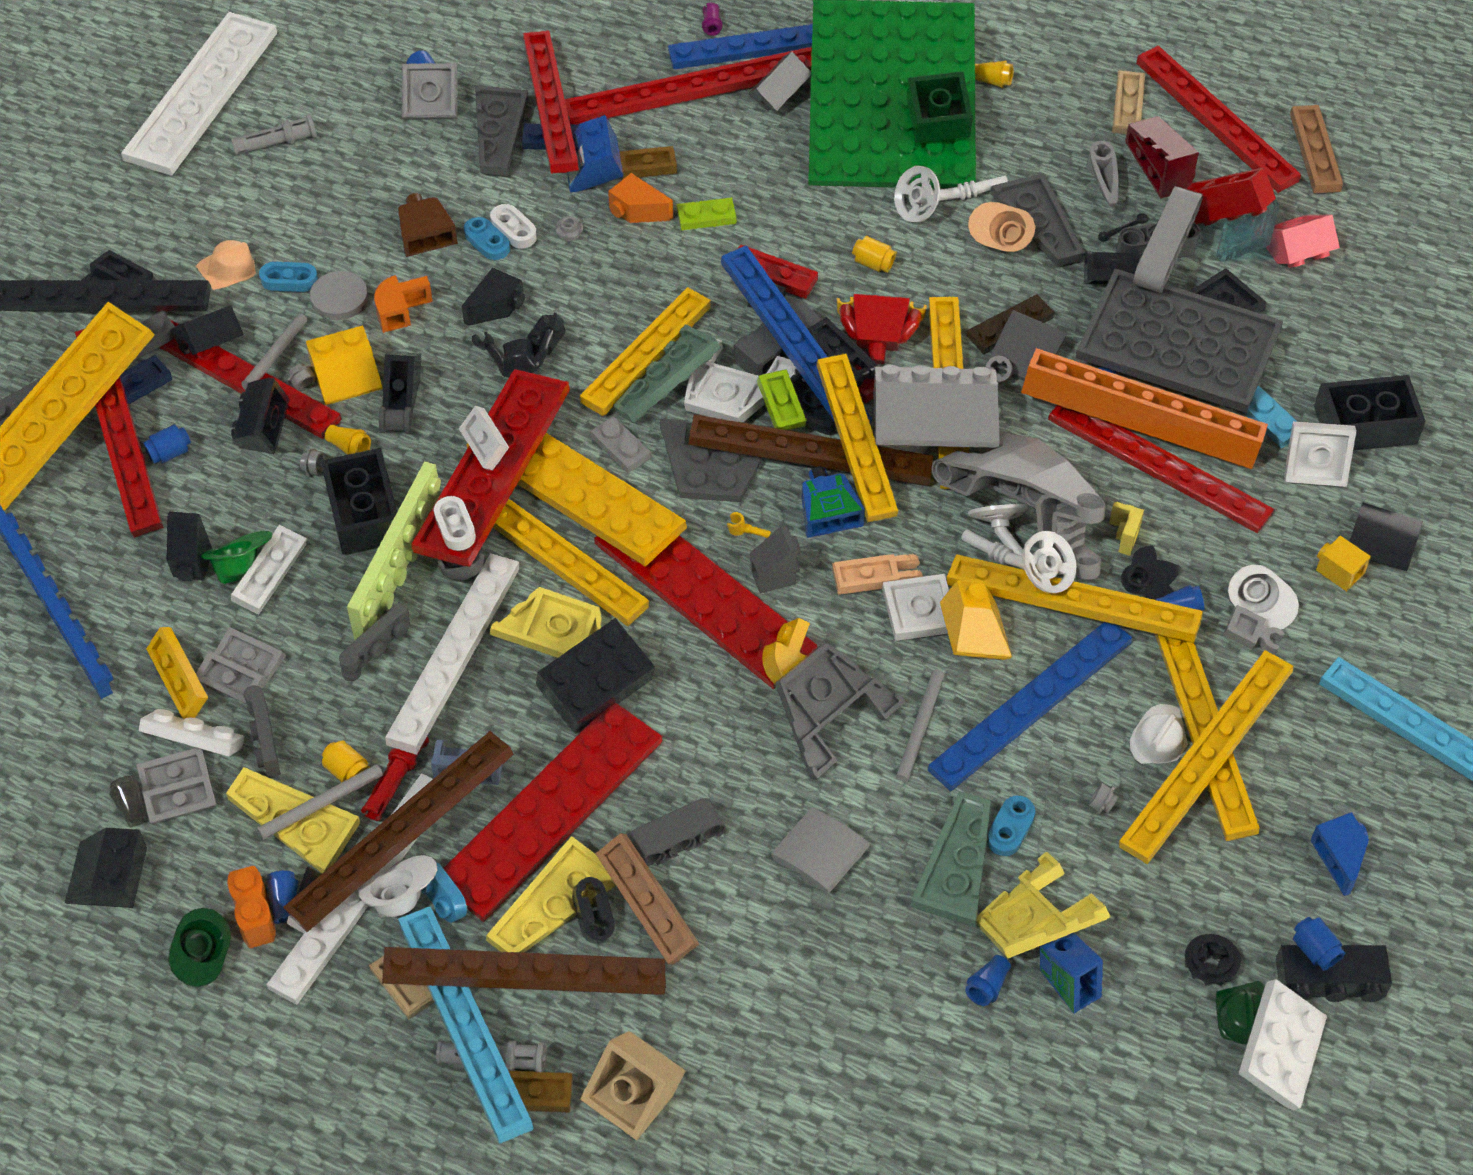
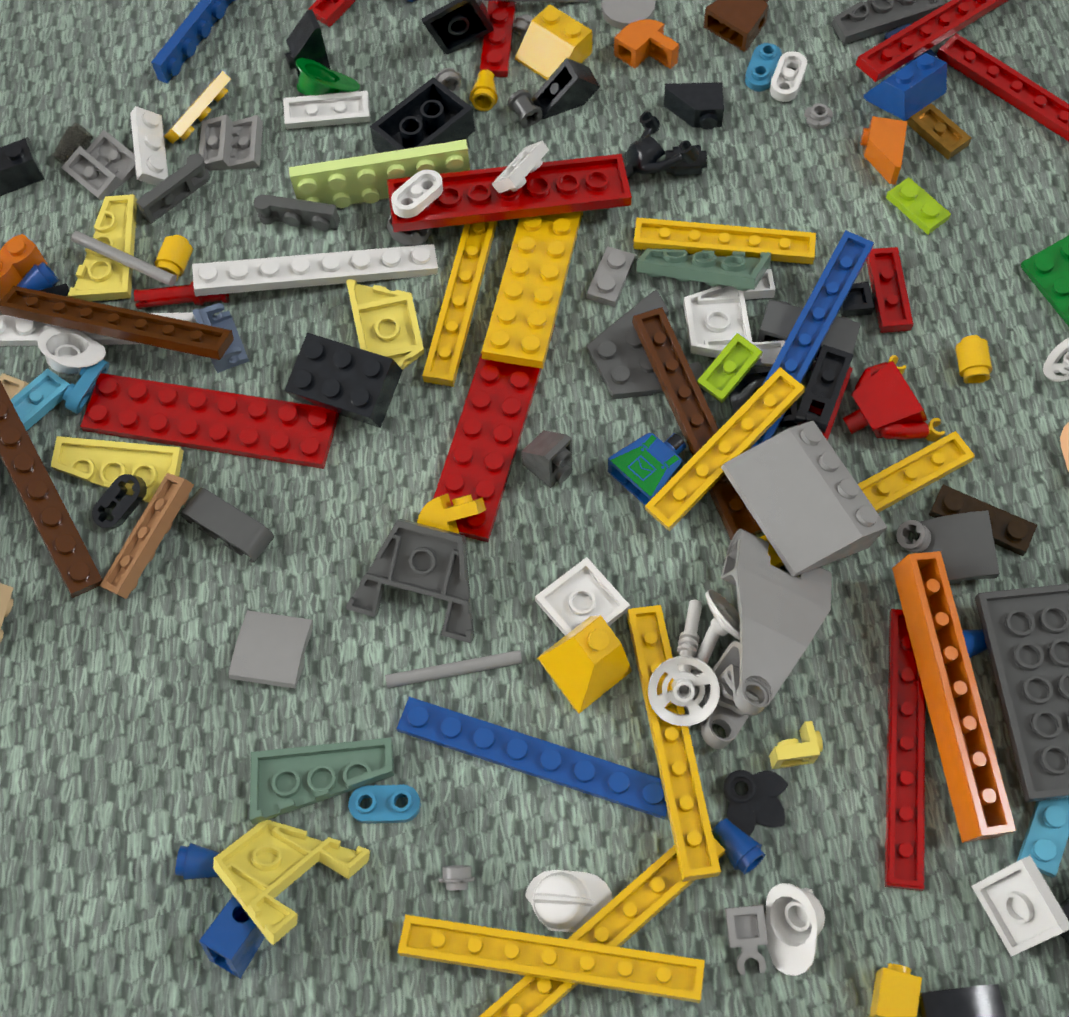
camera: 65 degrees right, 10 degrees up
(742, 527) = (583, 413): yellow hand -> none
(871, 572) = (597, 544): light nougat hinge -> none

